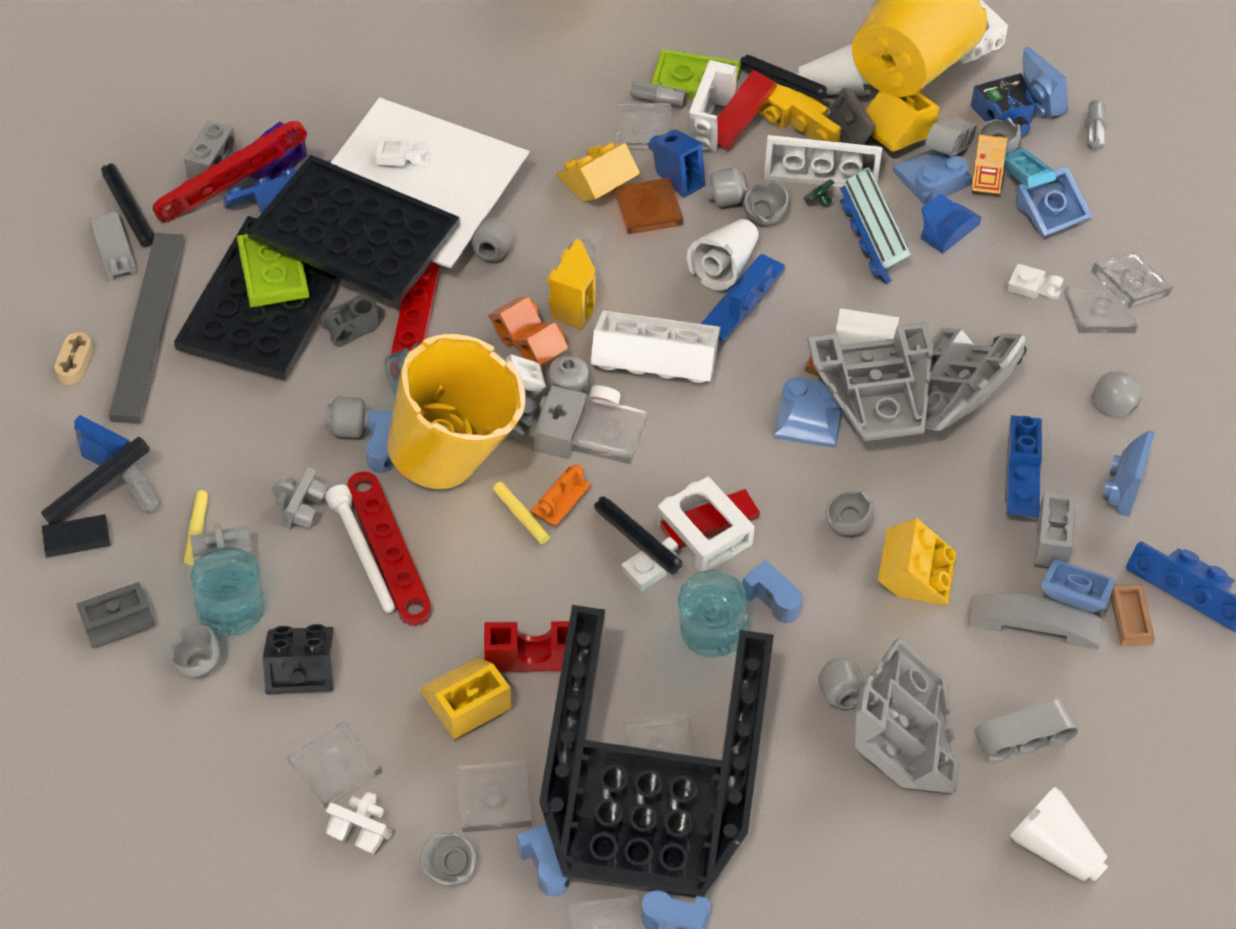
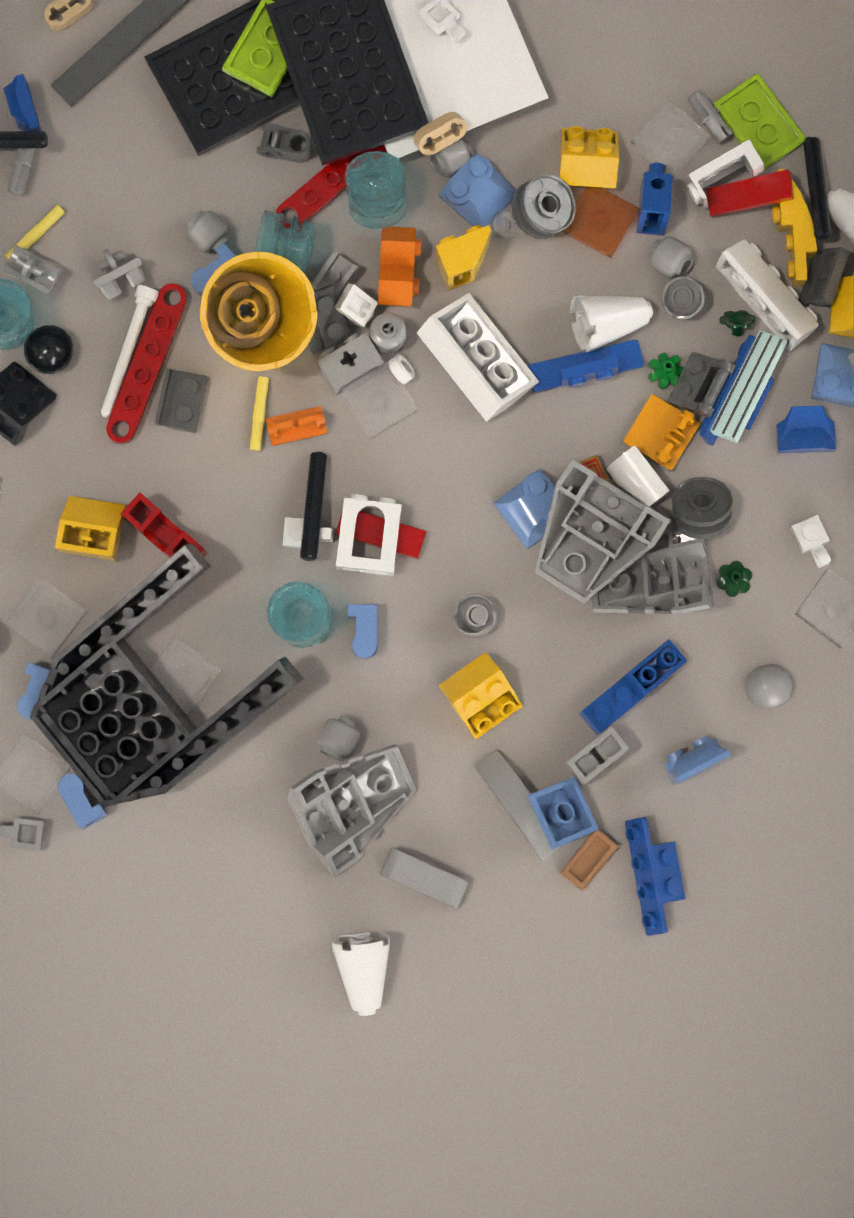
camera: 40 degrees right, 30 degrees up
(293, 595) = (48, 349): none -> black hat
(445, 551) = (181, 400): none -> dark grey plate
(460, 289) = (376, 190): none -> clear light blue wheel
(477, 221) = (440, 133): none -> tan beam
(534, 249) = (477, 192): none -> medium blue slope
(600, 216) = (558, 204): none -> wheel
(803, 259) = (664, 374): none -> green plant
(833, 246) = (695, 381): none -> flat silver plate
(845, 291) = (662, 432): none -> light orange hinge
(938, 306) = (701, 507): none -> dark grey wheel

